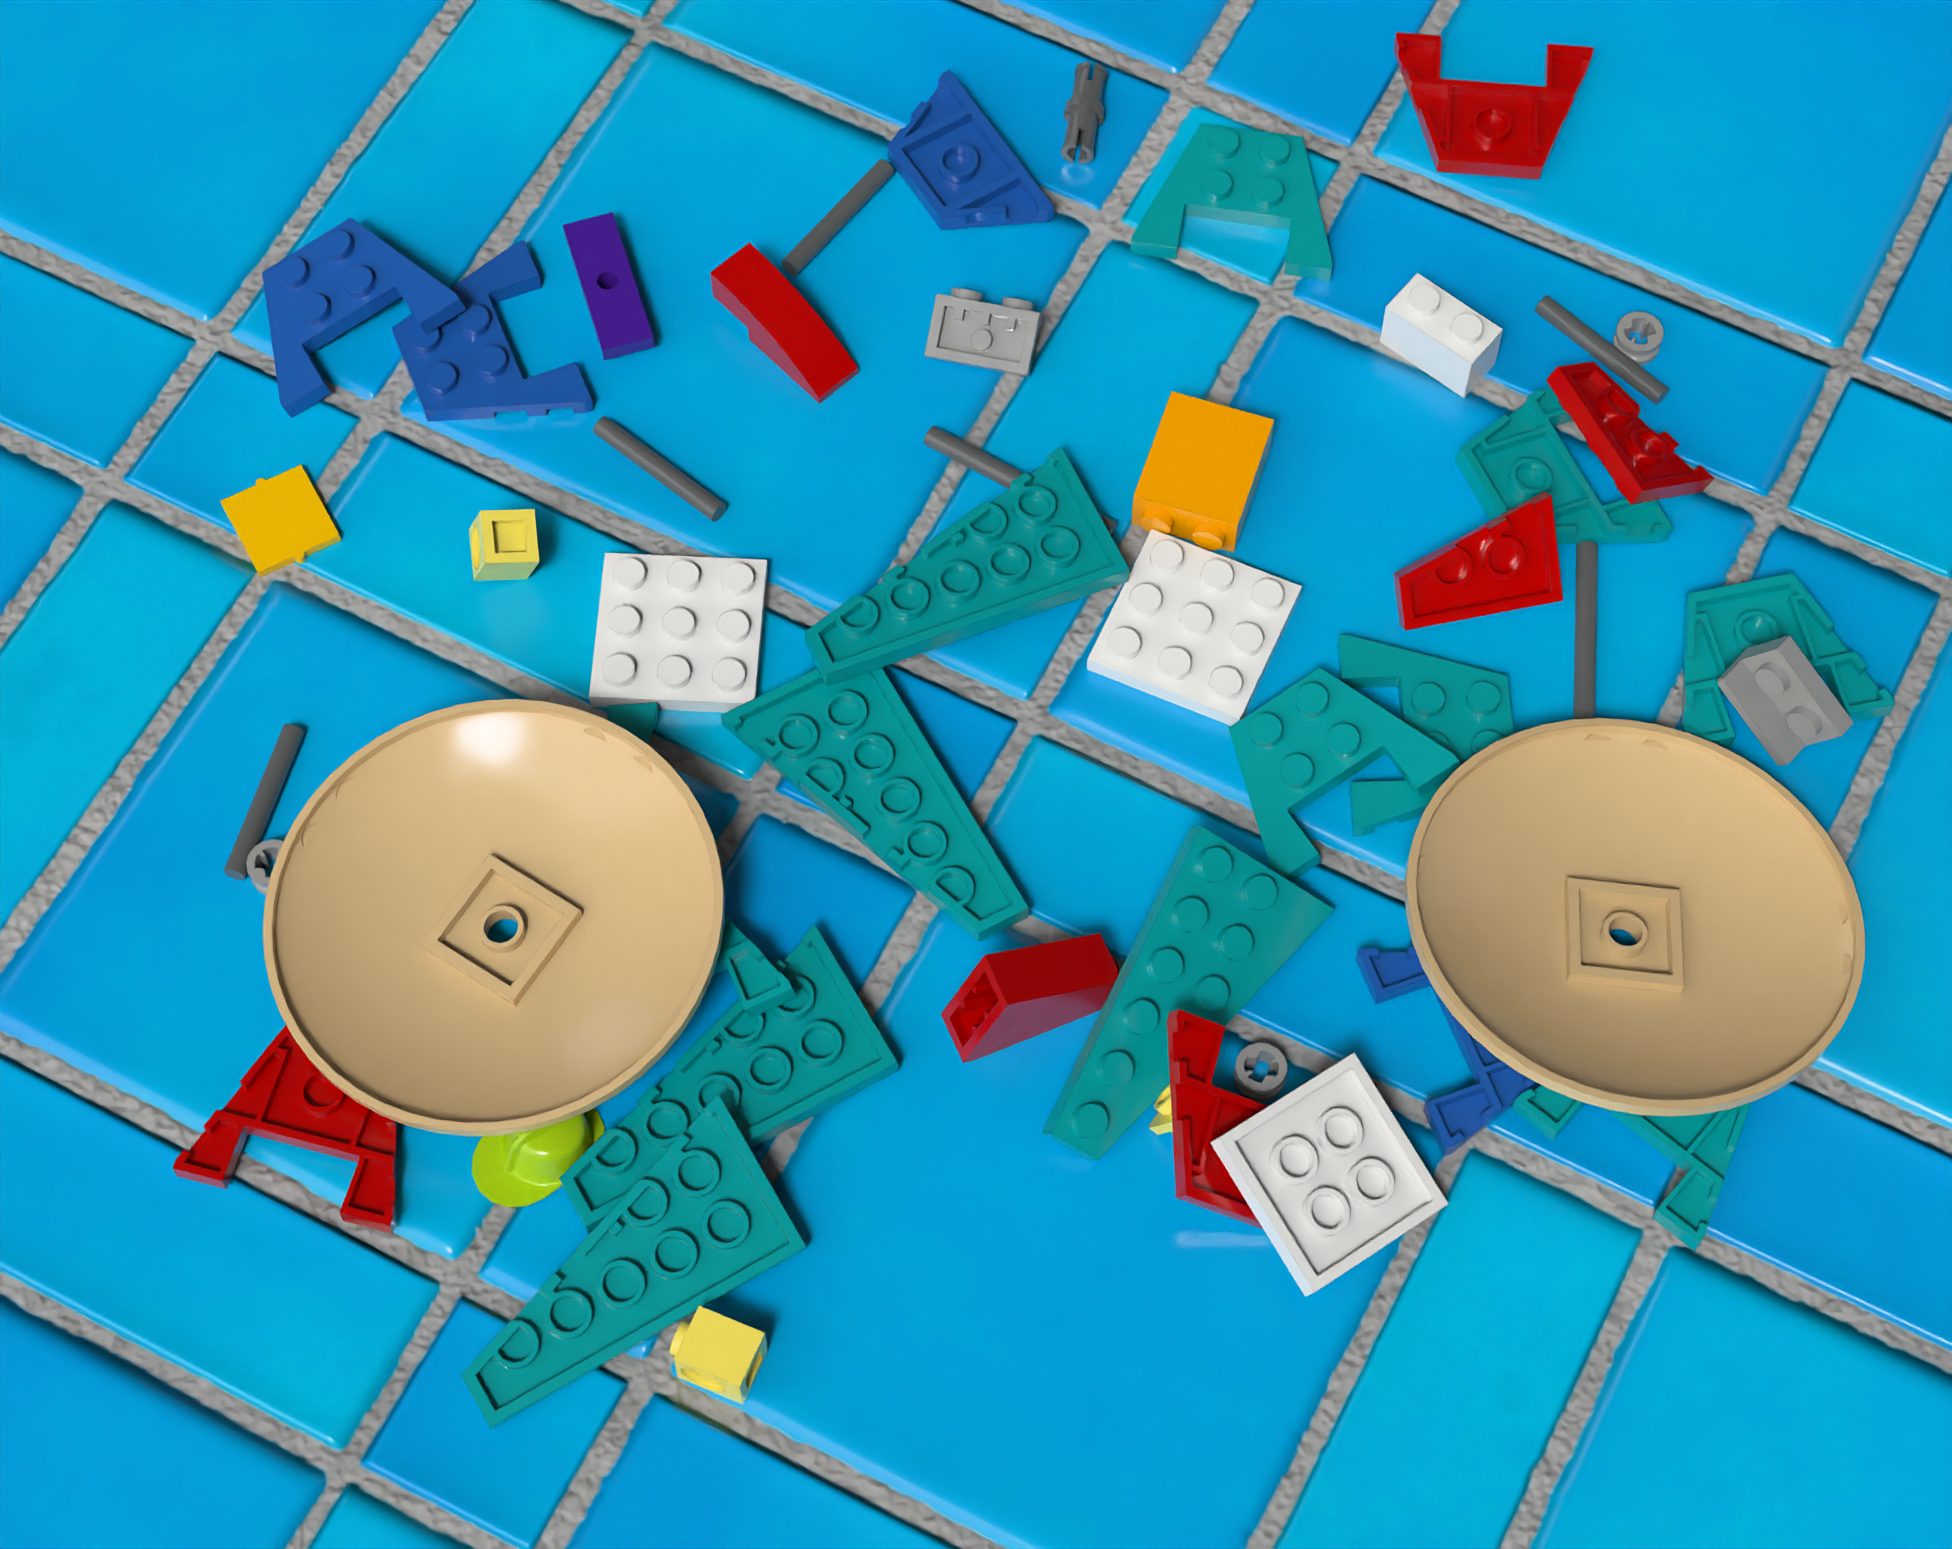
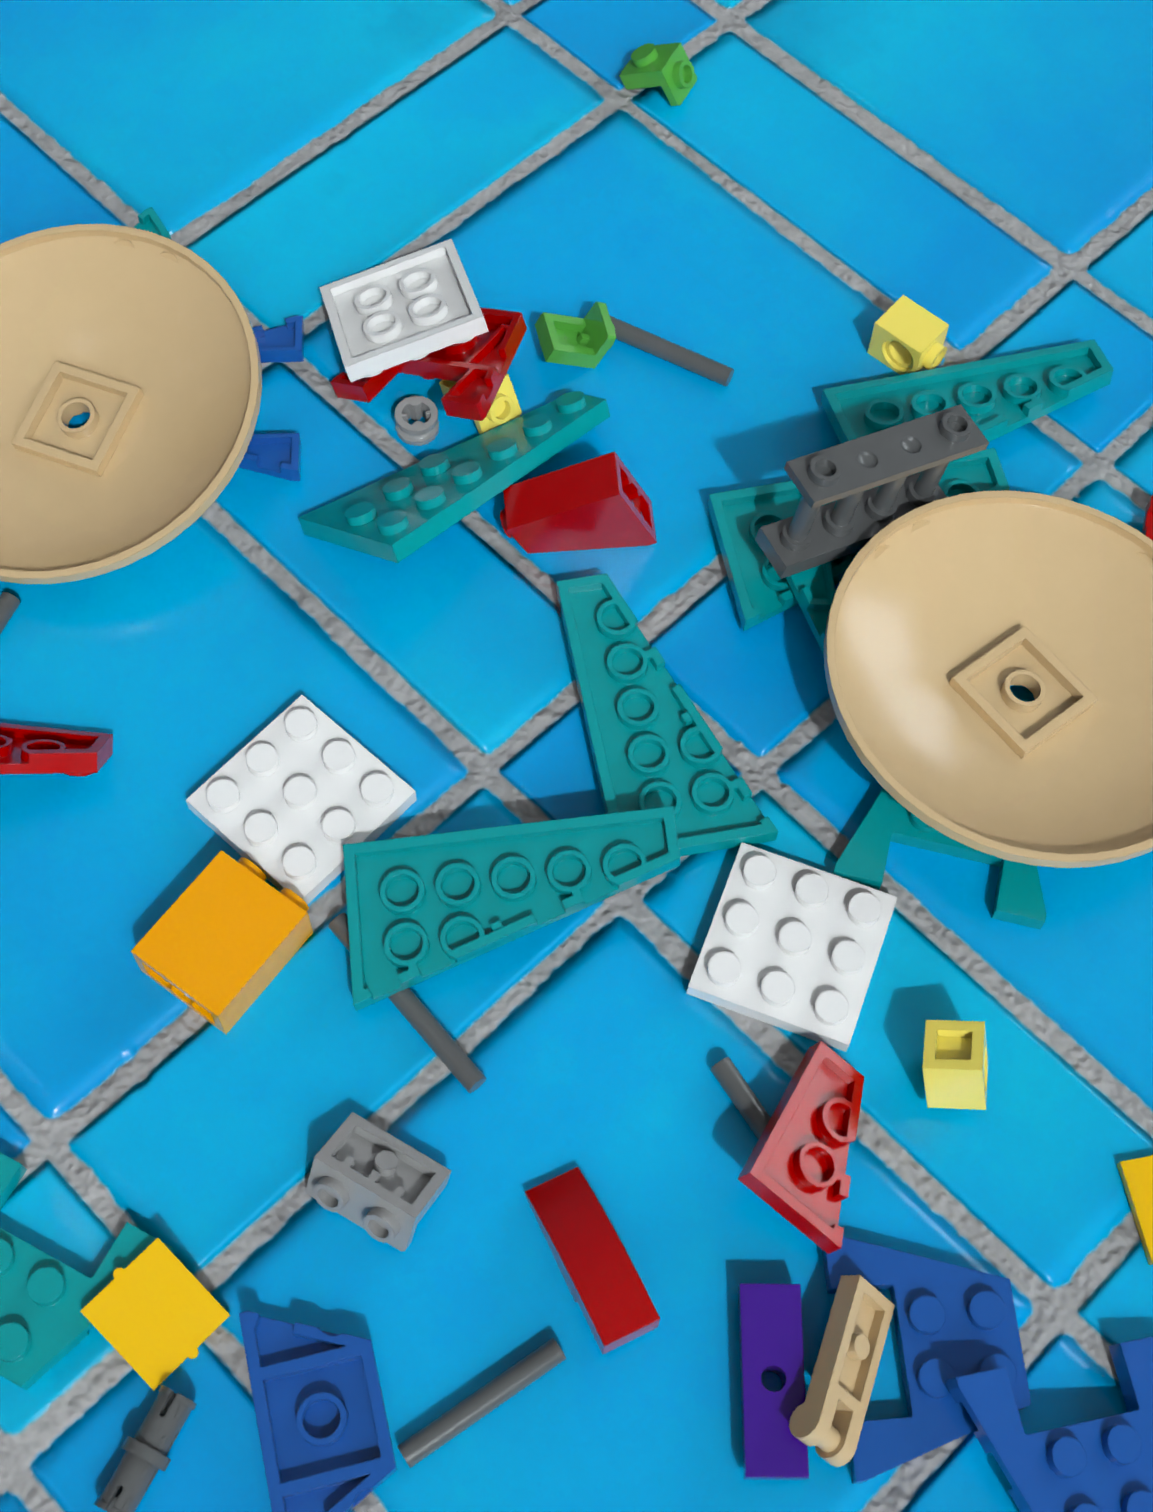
camera: 165 degrees left, 0 degrees up
(550, 300) = (844, 1371): none -> tan plate
(623, 446) = (806, 1146): none -> wing
(711, 1029) = (847, 470): none -> dark grey fence
(1009, 1263) = (672, 352): none -> dark grey bar
(1120, 1227) = (575, 339): none -> bright green bracket
(1122, 197) = (155, 1313): none -> yellow piece
(1311, 744) = (250, 651): teal wing -> none
(1440, 698) = (121, 635): teal wing -> none

